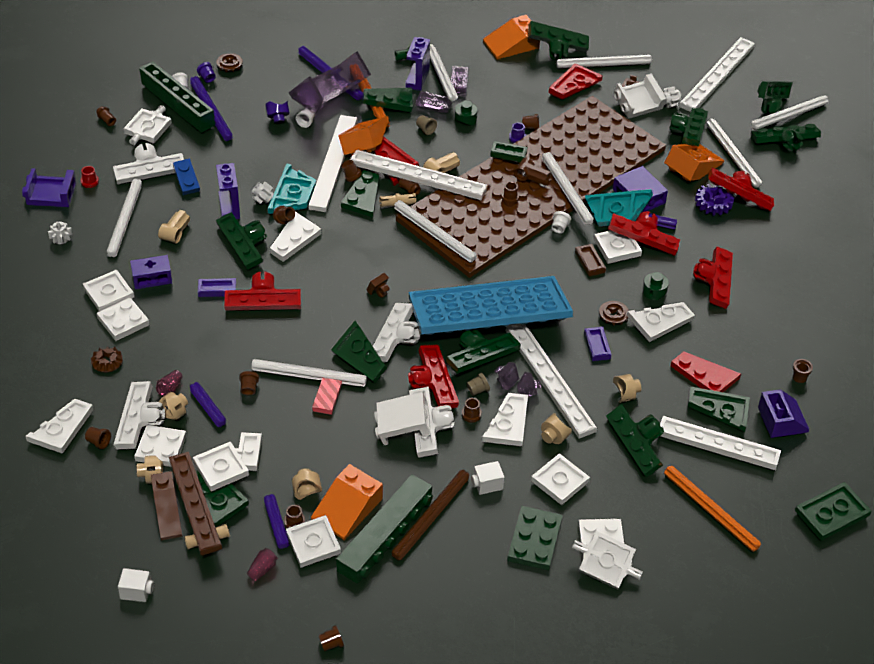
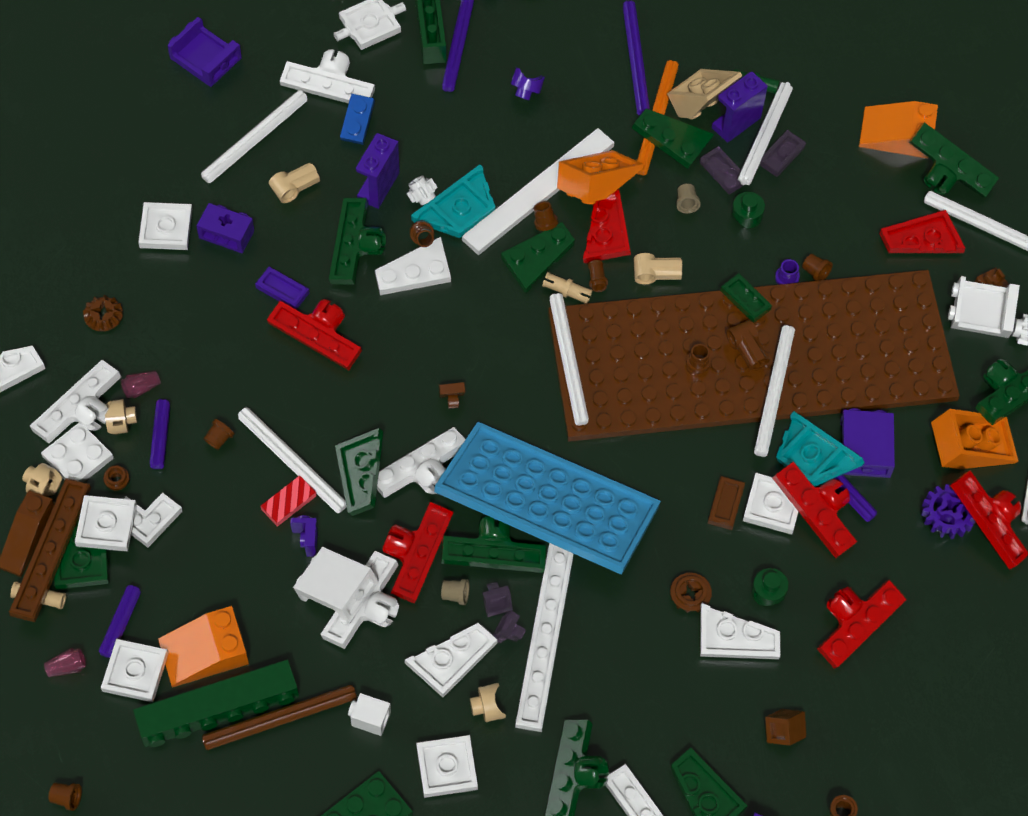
camera: 35 degrees right, 15 degrees up
(60, 232) = (170, 120): white gear -> none
(89, 177) = (256, 60): red piece -> none
(99, 437) = (22, 407): reddish brown piece -> none
(122, 319) = (156, 271): white plate -> none
(200, 443) = (116, 471): none -> reddish brown plate
(293, 516) = (143, 636): reddish brown piece -> none
(305, 117) = (554, 109): white piece -> none
(306, 483) = (177, 597): tan piece -> none
(326, 86) = (606, 81): clear purple windscreen -> none
(358, 403) = (308, 532): none -> dark purple bracket
(389, 64) = (701, 91): none -> tan slope
(419, 174) = (615, 269): white tile -> none
(471, 410) = (424, 626): reddish brown piece -> none
(560, 222) = (731, 431): white piece -> none
(597, 343) = (637, 620): tile -> none
(627, 387) = (617, 702): tan piece -> none
(705, 373) = (728, 741): wing -> none
(731, 348) = (785, 727): none -> reddish brown panel

